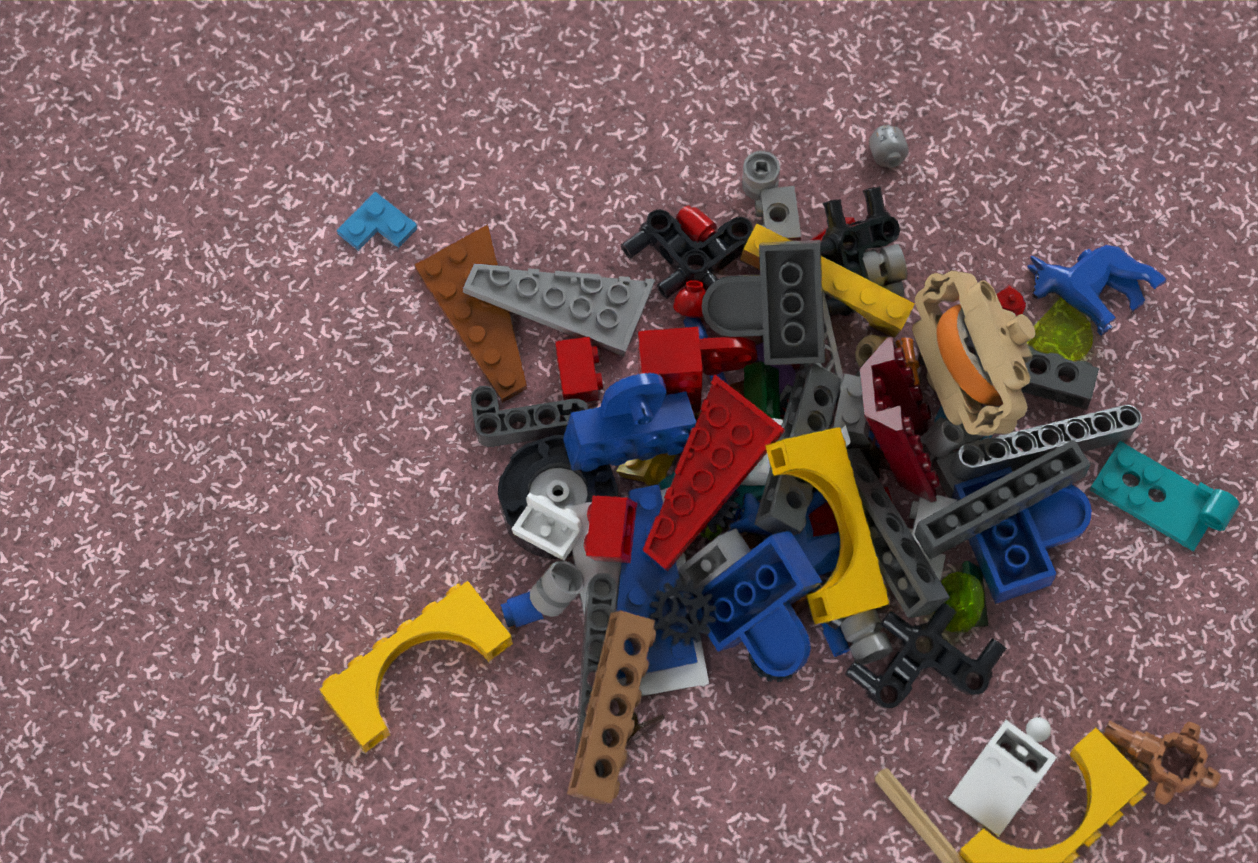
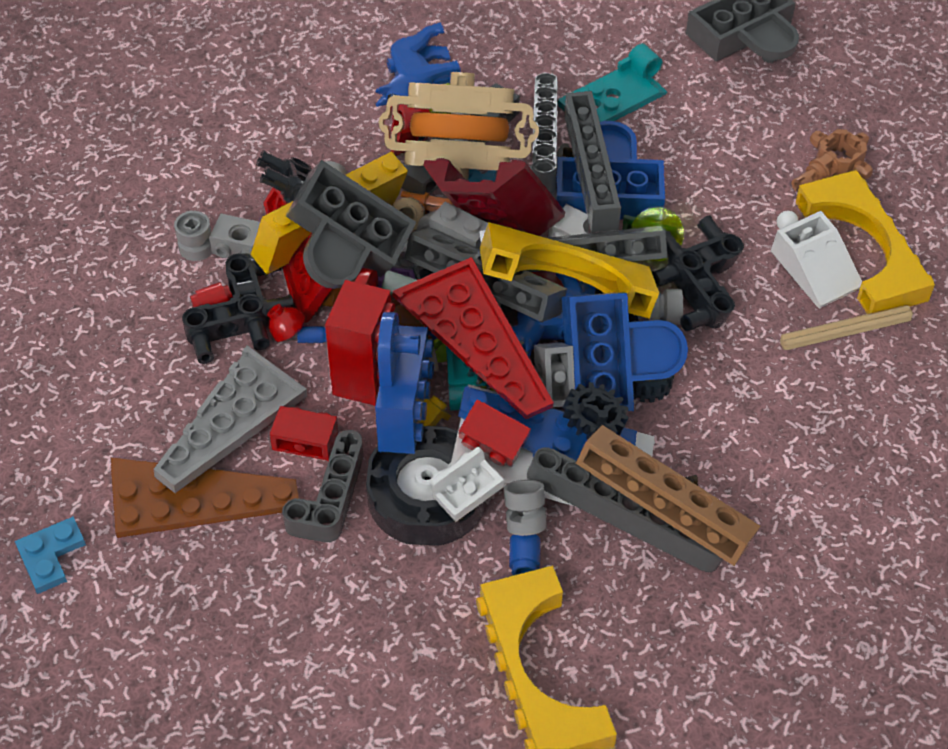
camera: 70 degrees left, 15 degrees down
(888, 146) = (219, 147): light grey head -> none

